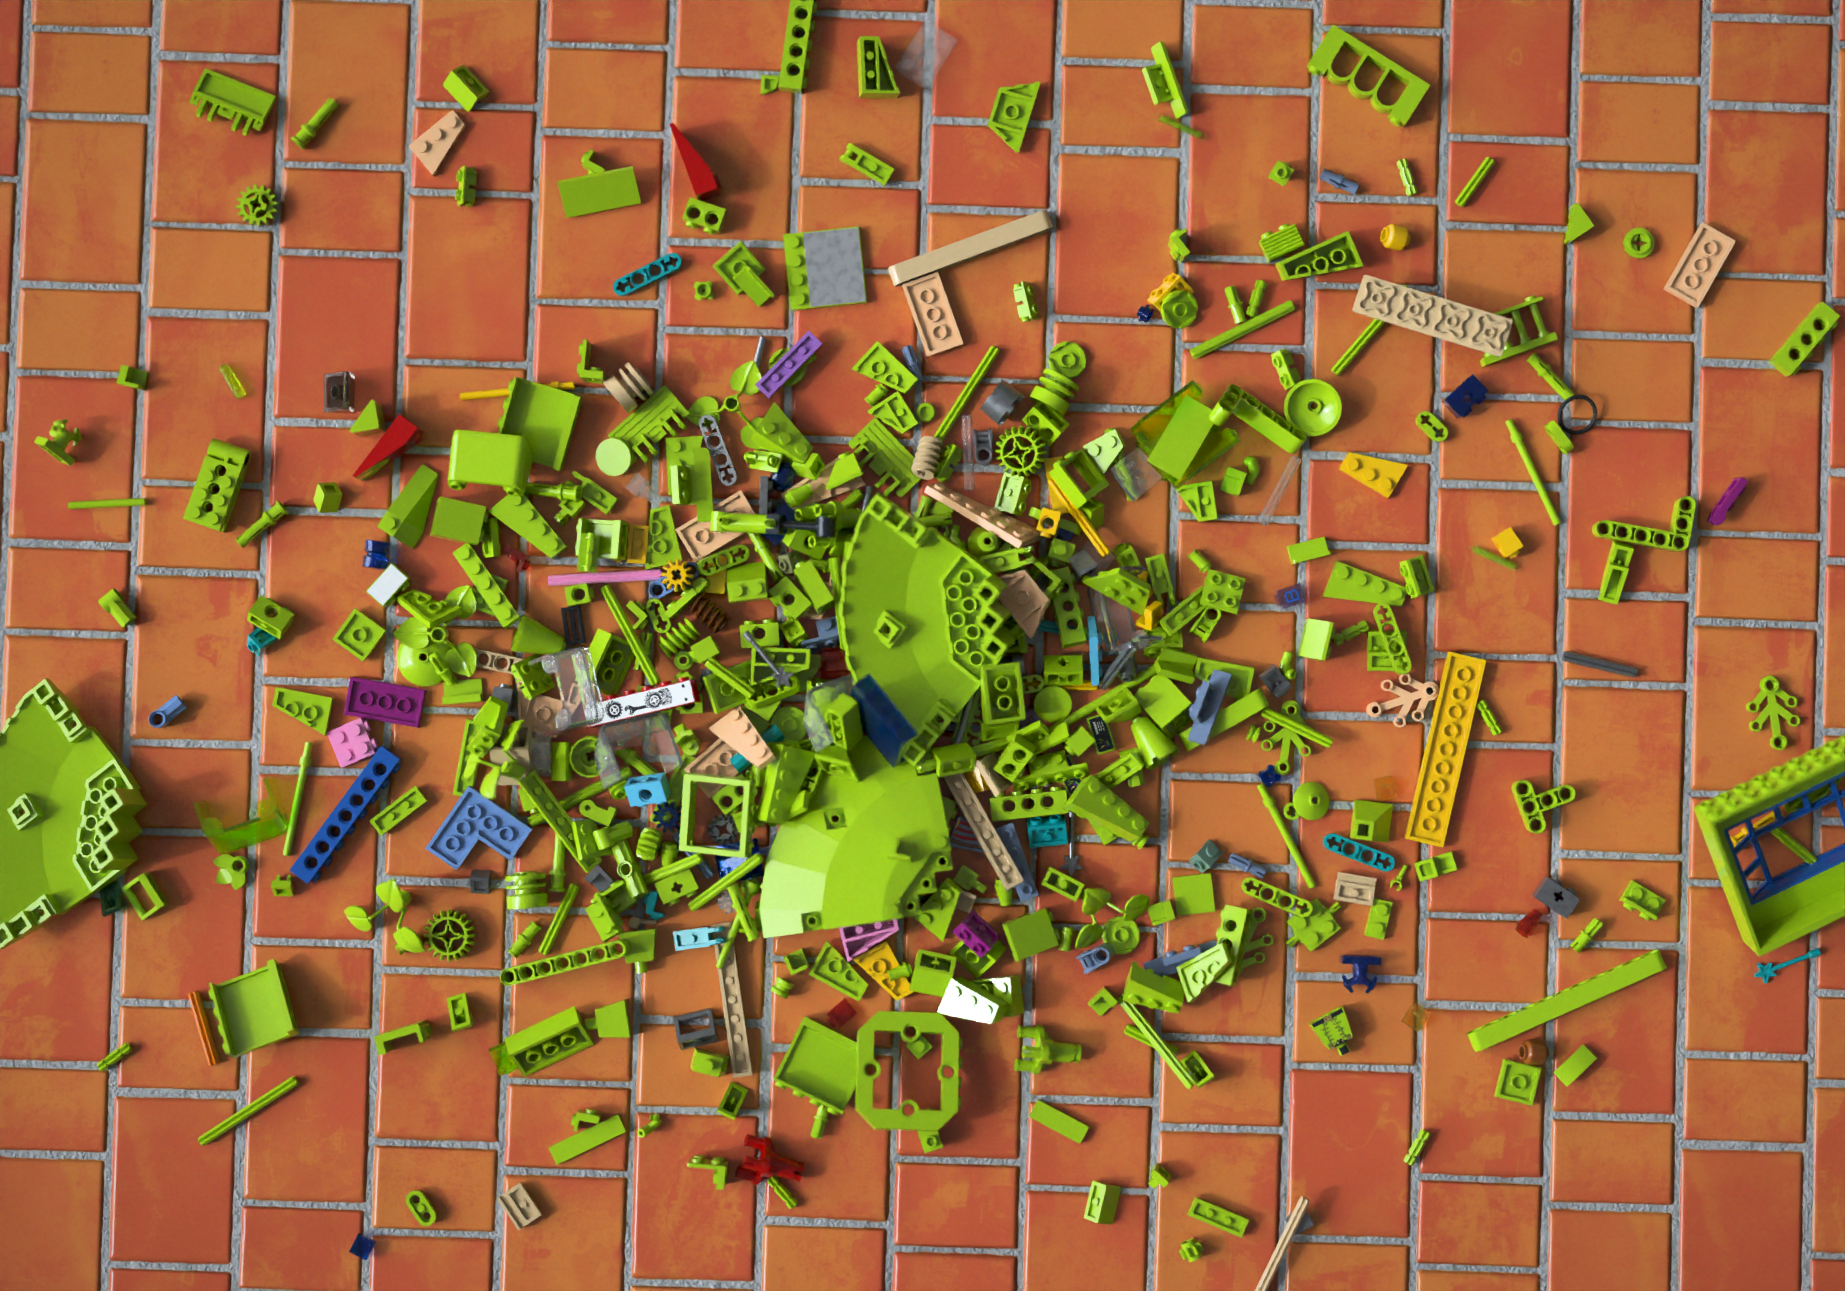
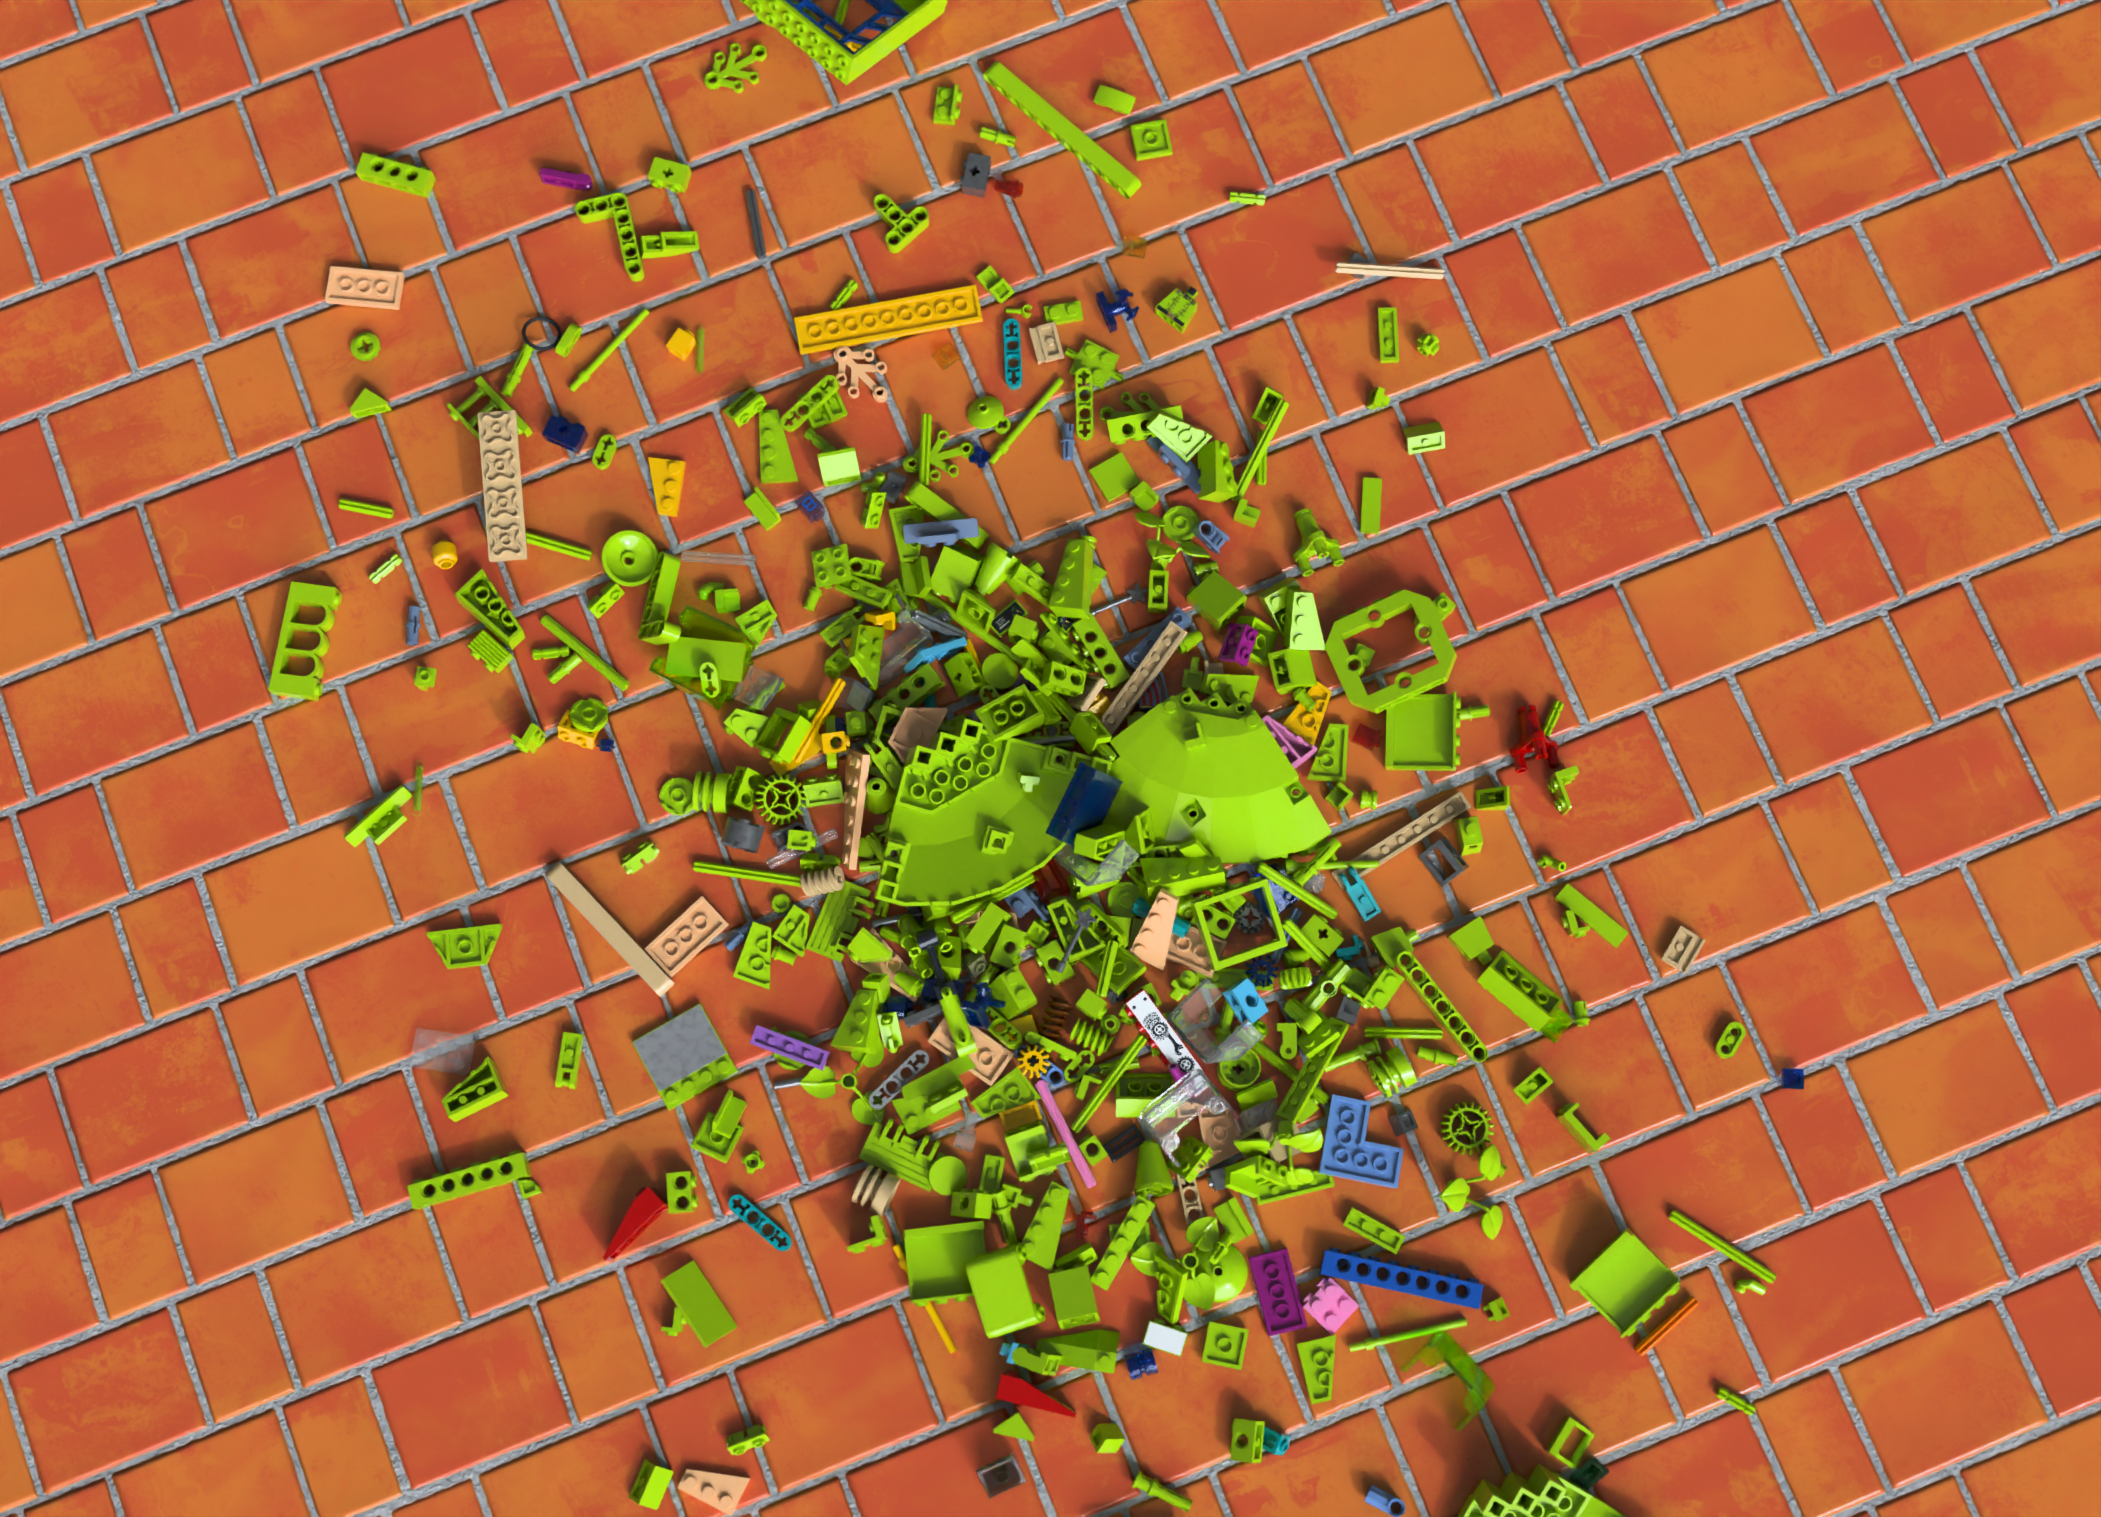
camera: 115 degrees left, 10 degrees down
(203, 1120) = (1742, 1284): none -> lime arm
(230, 872) = (1507, 1369): lime plate -> none
(422, 460) = (1031, 1358): none -> lime hips
(504, 1086) = (1581, 1013): none -> lime pin
(577, 466) = (971, 1204): none -> lime brick
(607, 698) = (1176, 1073): none -> magenta arm
(743, 543) = (976, 1010): none -> clear blue piece
(933, 682) = (1027, 780): none -> lime tile
(972, 453) = (801, 840): none -> lime bracket
(1047, 831) = (1117, 626): teal bracket -> none
(1160, 429) = (715, 678): none -> lime beam
(1205, 856) = (1076, 480): sand green bracket -> none
(1253, 733) = (947, 486): lime bush -> none
(1256, 650) = (872, 514): none -> lime hinge
(1371, 821) = (980, 354): lime slope -> none
(1533, 1052) = (1119, 137): dark orange head -> none
(1696, 598) = (677, 175): none -> lime brick

